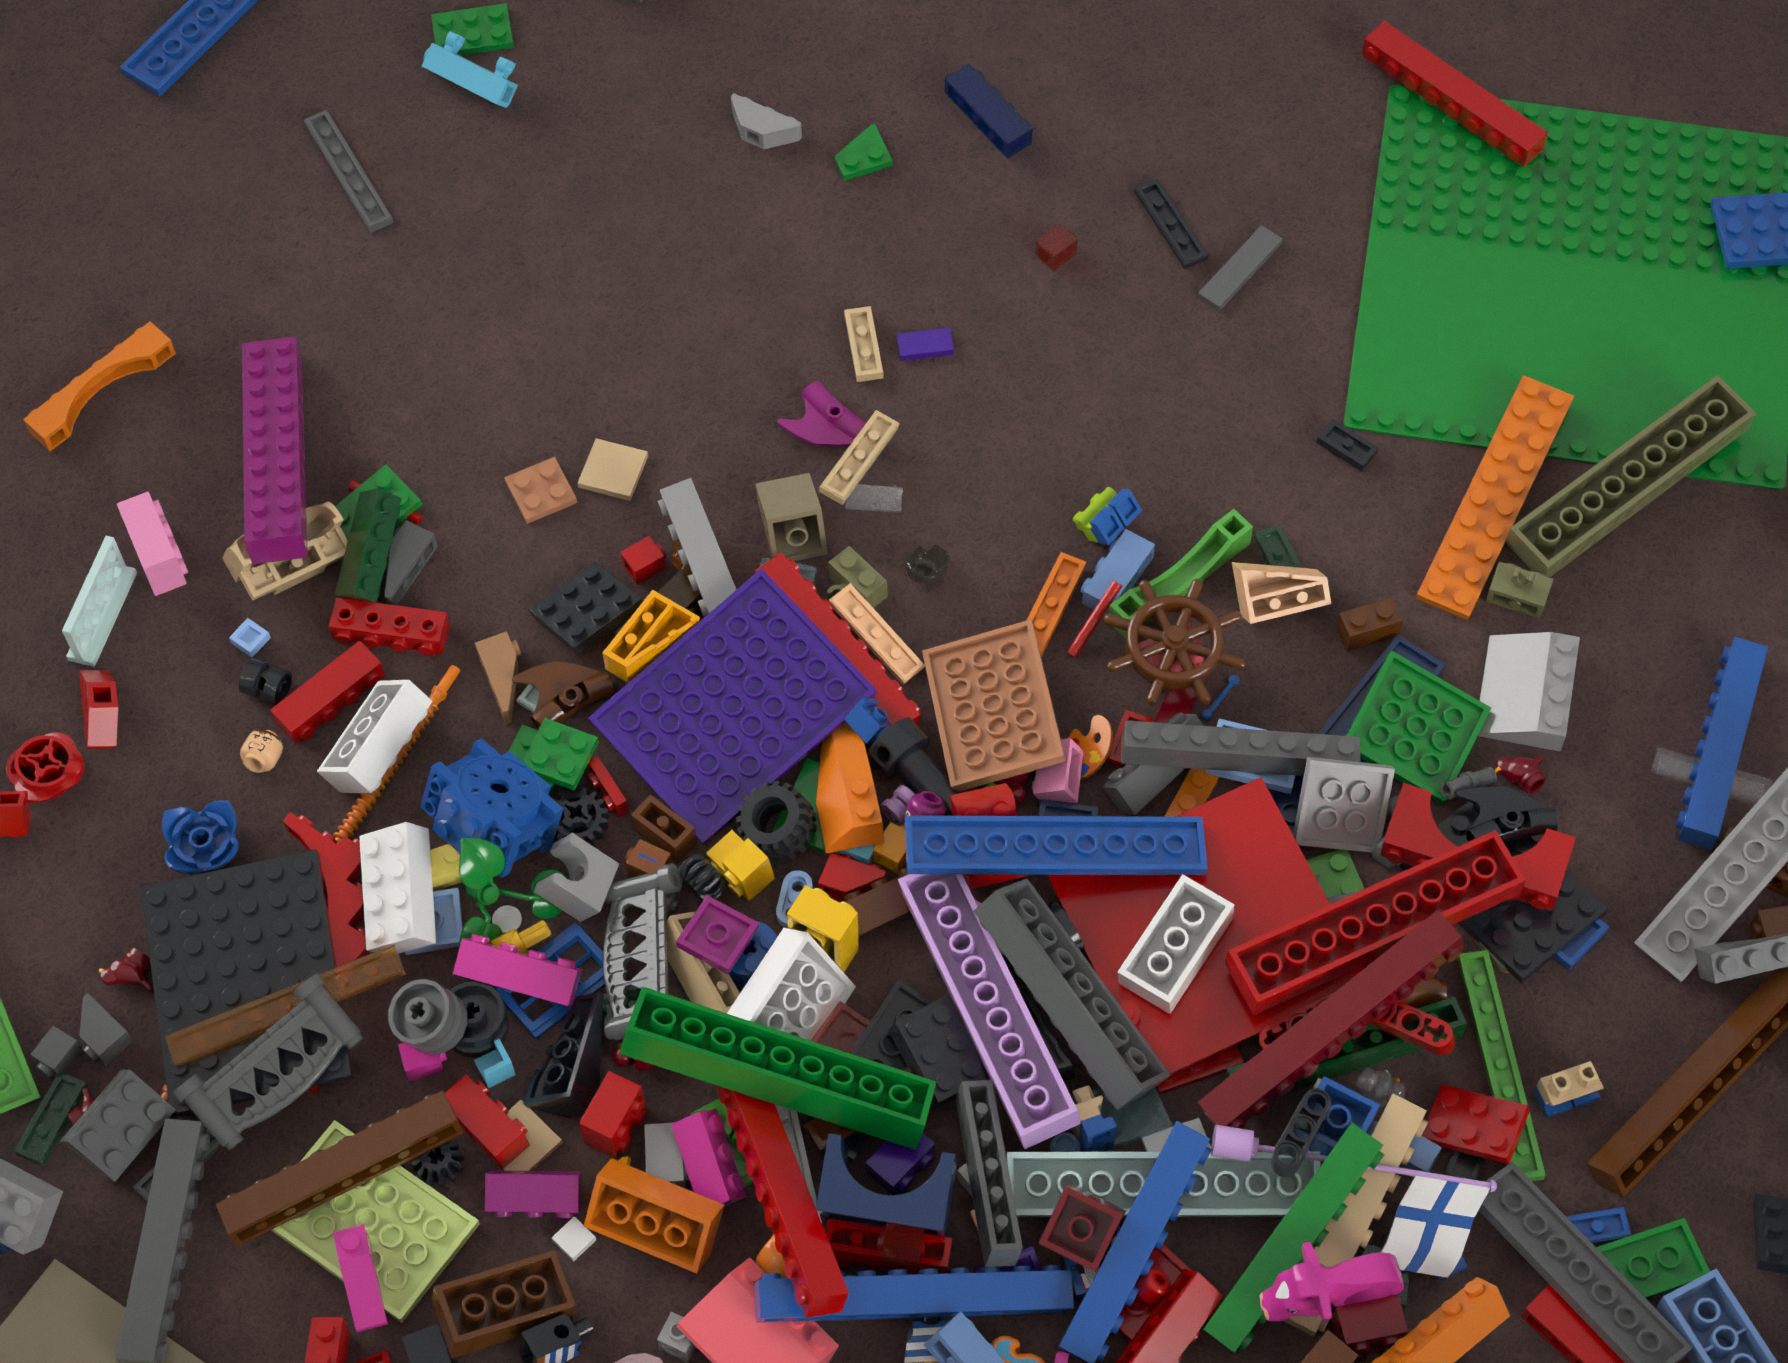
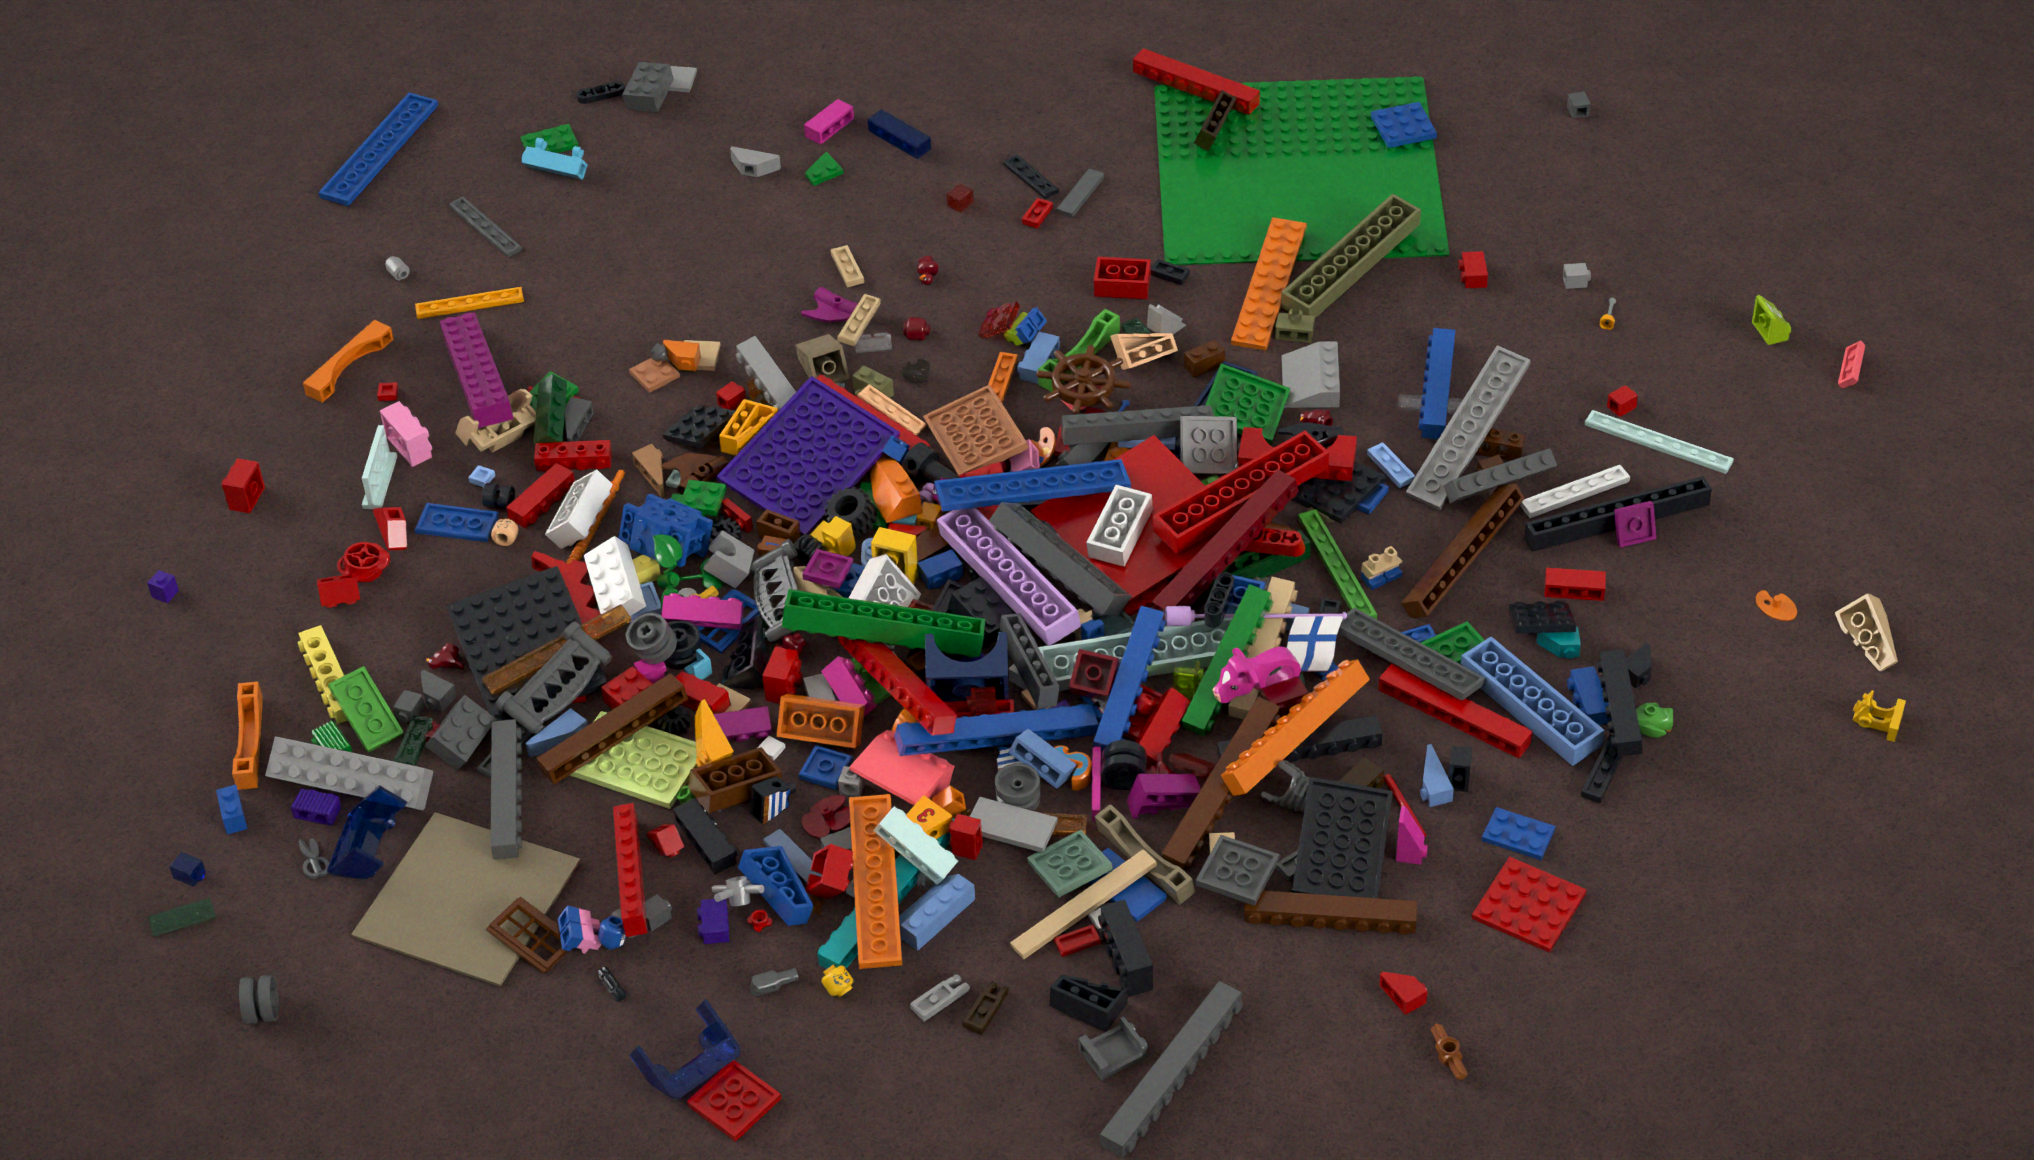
camera: 10 degrees left, 15 degrees down
(145, 452) = (387, 391): none -> red plate
(186, 828) = (476, 580): blue brick -> none
(197, 714) = (456, 522): none -> blue tile
(205, 226) = (397, 268): none -> light grey brick
(267, 1149) = (556, 732): none -> medium blue slope
(297, 307) = (469, 302): none -> light orange tile
(360, 1277) = (638, 782): dark pink slope -> none
(380, 1091) = (624, 687): none -> red brick
(422, 1308) = (685, 795): none -> bright green bush
(476, 1236) = (710, 739): none -> light orange slope
(551, 462) = (659, 352): none -> dark grey plate
(587, 471) = (683, 354): none -> orange slope
(647, 1295) = (824, 767): none -> blue plate
(888, 68) = (829, 121): none -> dark pink brick
(892, 952) = (940, 568): none -> blue brick
(925, 344) = (887, 261): dark purple tile -> none
(943, 483) = (916, 328): none -> dark red head
(981, 369) = (926, 268): none -> dark red animal
(1070, 492) = (999, 319): none -> clear red plate
(1094, 618) = (1029, 381): red bar -> none
(1167, 296) = (1037, 213): none -> red plate
(1227, 1259) = (1188, 680): none -> clear neon green bracket
(1272, 447) = (1122, 277): none -> red brick
(1320, 544) = (1163, 321): none -> light grey slope
(1468, 780) = (1273, 430): dark grey pin -> none
(1469, 176) = (1215, 120): none -> dark brown brick
(1476, 1123) = (1329, 594): red plate -> none
(1620, 884) = (1391, 465): none -> light blue plate

